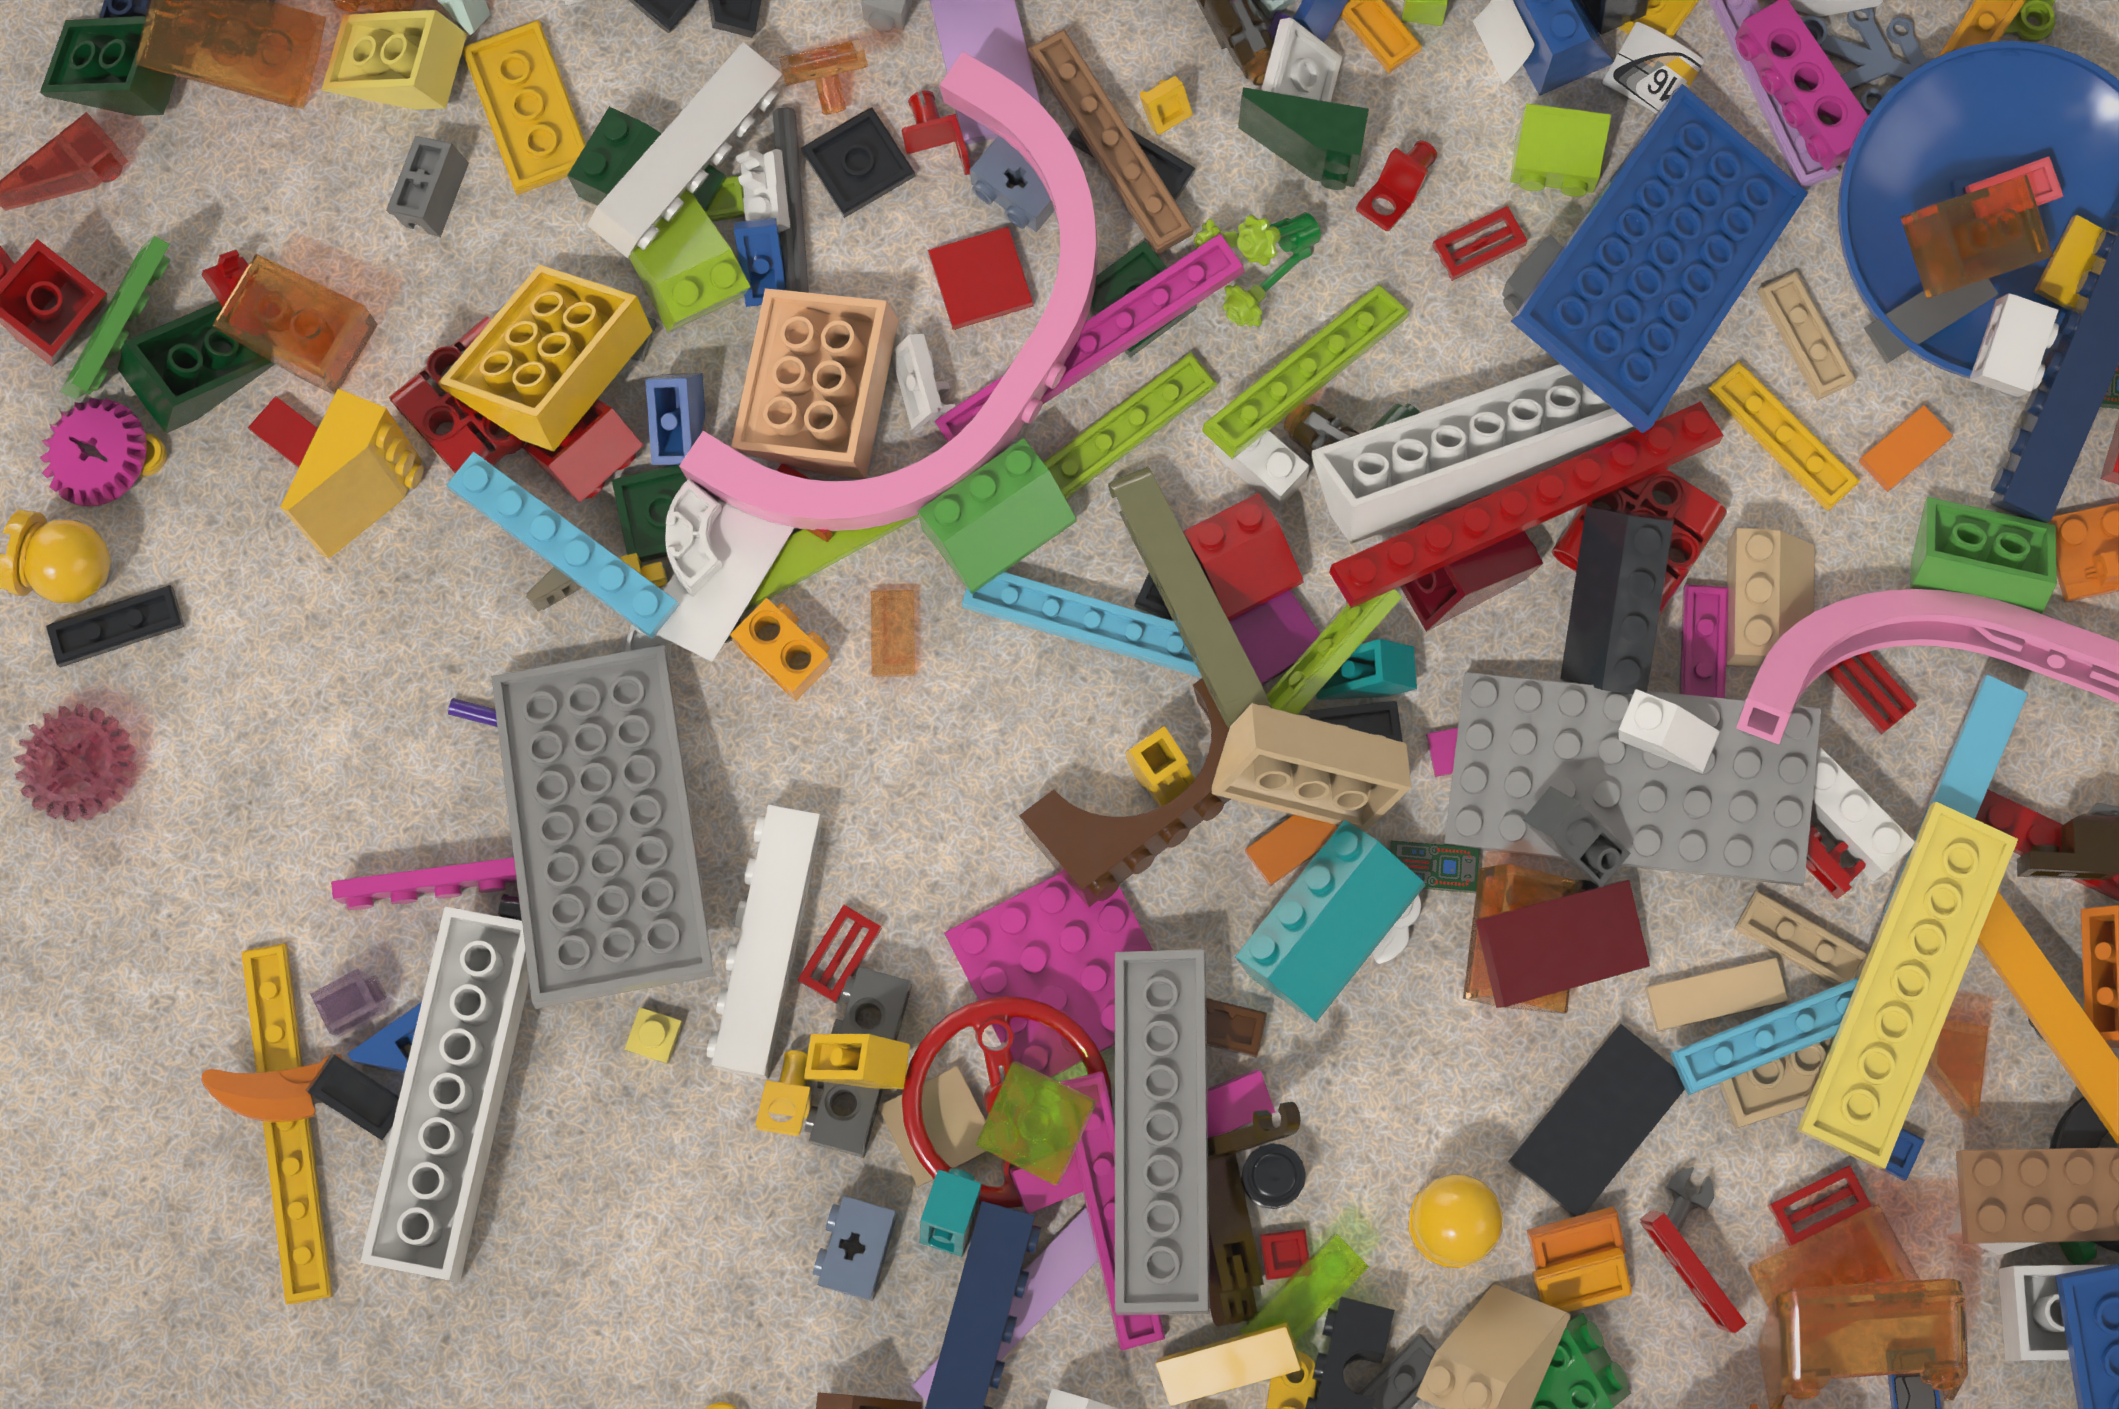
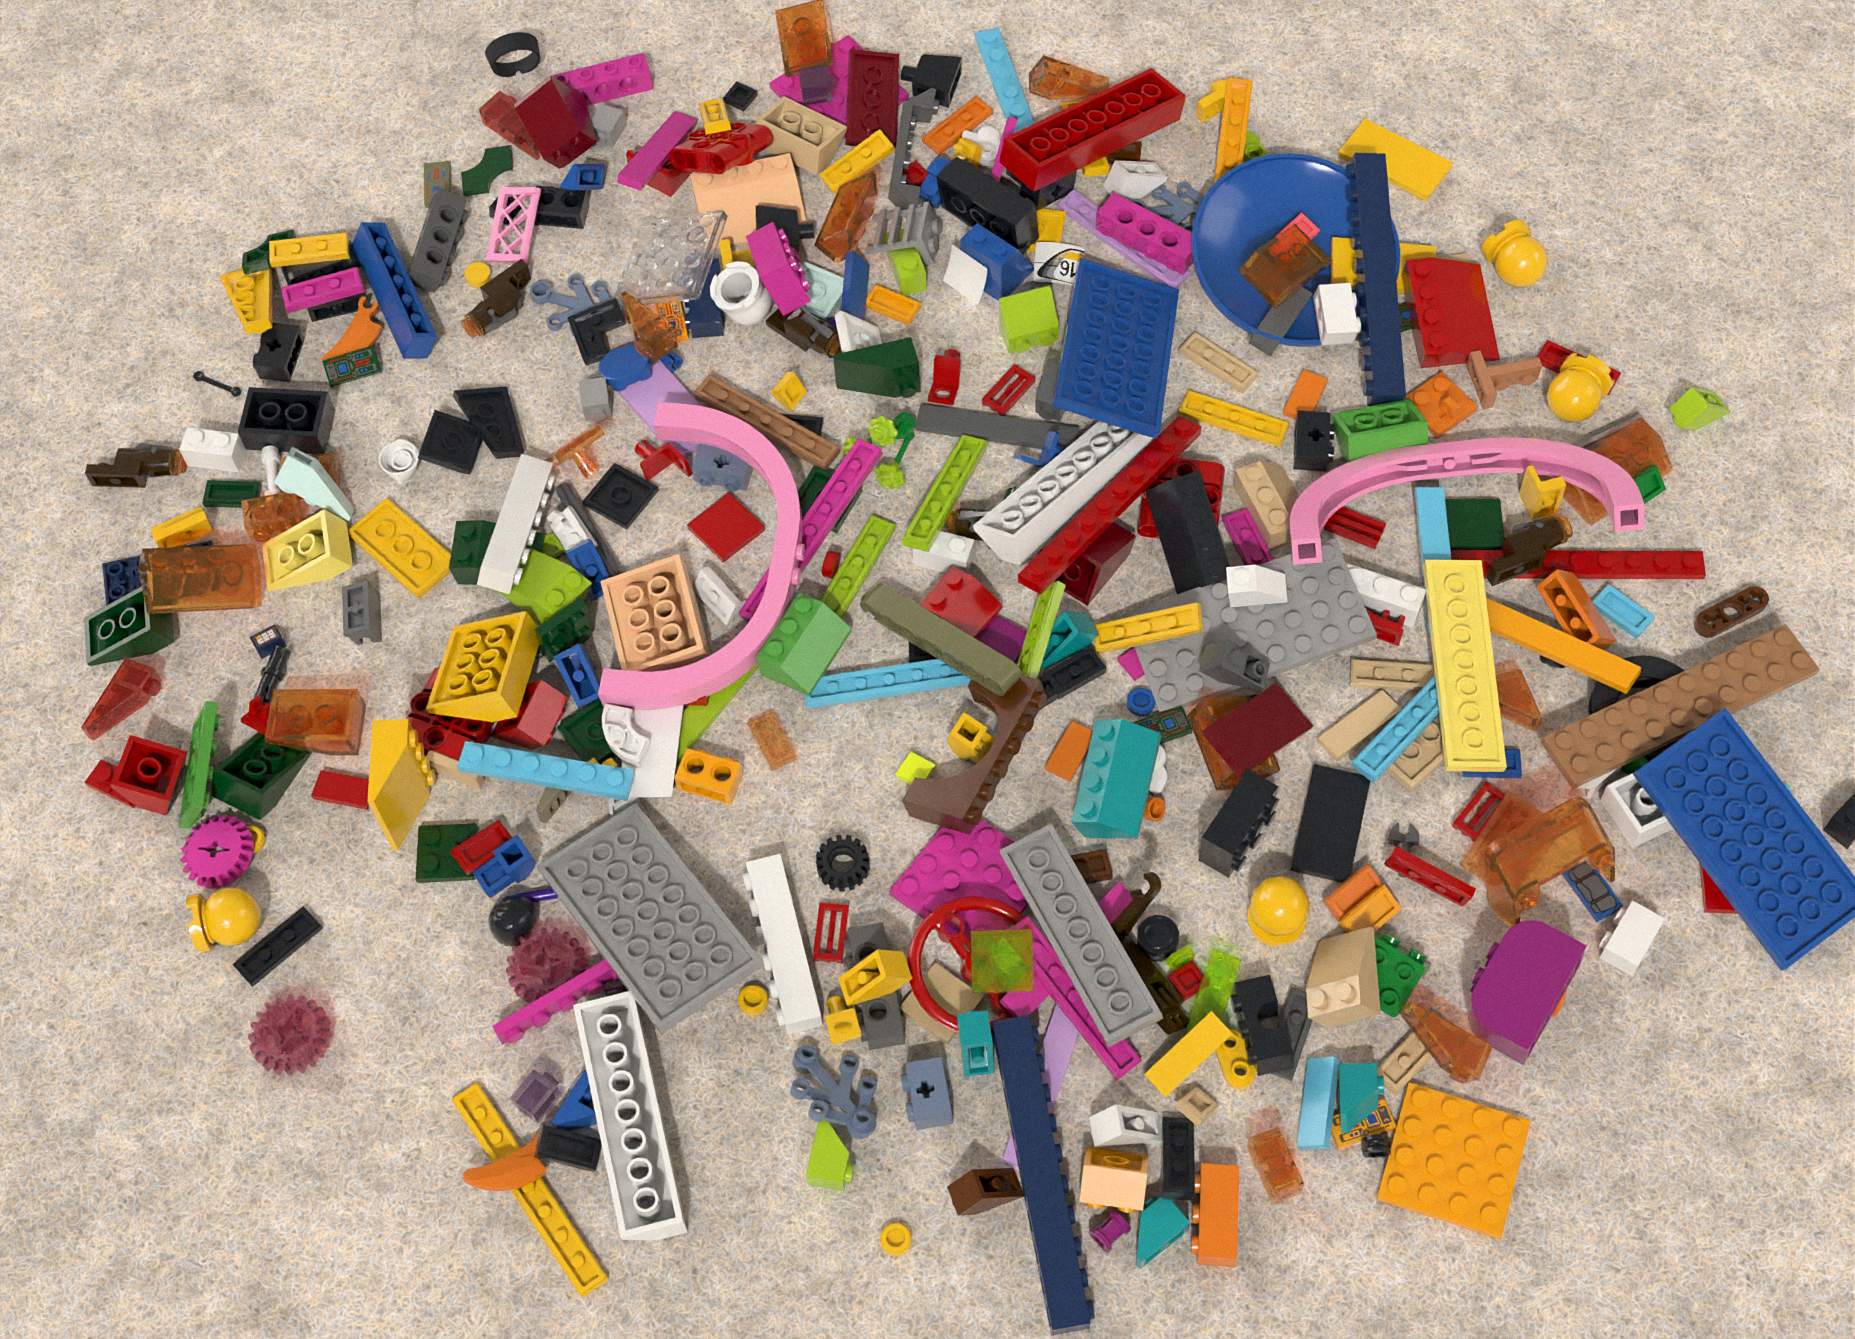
camera: 25 degrees left, 15 degrees down
(273, 221) = (272, 673): none -> black pin
(288, 168) = (266, 640): none -> slope
(389, 595) = (433, 852): none -> dark green plate
(430, 735) = (512, 918): none -> black hair
(436, 613) = (480, 847): none -> red tile
(442, 472) = (448, 767): none -> tan tile
(449, 806) = (523, 966): none -> clear pink gear
(453, 656) = (509, 865): none -> blue brick
(653, 1035) = (738, 1031): light yellow plate -> none
(683, 342) = (565, 629): none -> dark green plate
(685, 1276) = (829, 1160): none -> lime slope
(692, 1000) = (753, 1000): none -> yellow tile
(735, 1192) = (858, 1120): none -> sand blue plant
(895, 836) = (842, 847): none -> black tyre
(1066, 769) = (914, 767): none -> neon yellow tile
(1096, 404) = (831, 564): none -> red tile
(1289, 1220) = (1180, 957): none -> clear neon green tile
(1311, 768) = (1061, 696): tan slope -> none
(1363, 985) = (1154, 809): none -> orange hinge
(1426, 814) = (1140, 702): none -> blue tile
(1432, 296) = (991, 427): none -> dark grey tile
(1466, 1070) = (1239, 824): none -> black brick
(1486, 373) = (1049, 451): none -> blue bracket
(1488, 717) = (1149, 628): none -> yellow tile
(1882, 503) = (1312, 441): none -> black brick
(2046, 764) = (1475, 524): none -> dark green tile

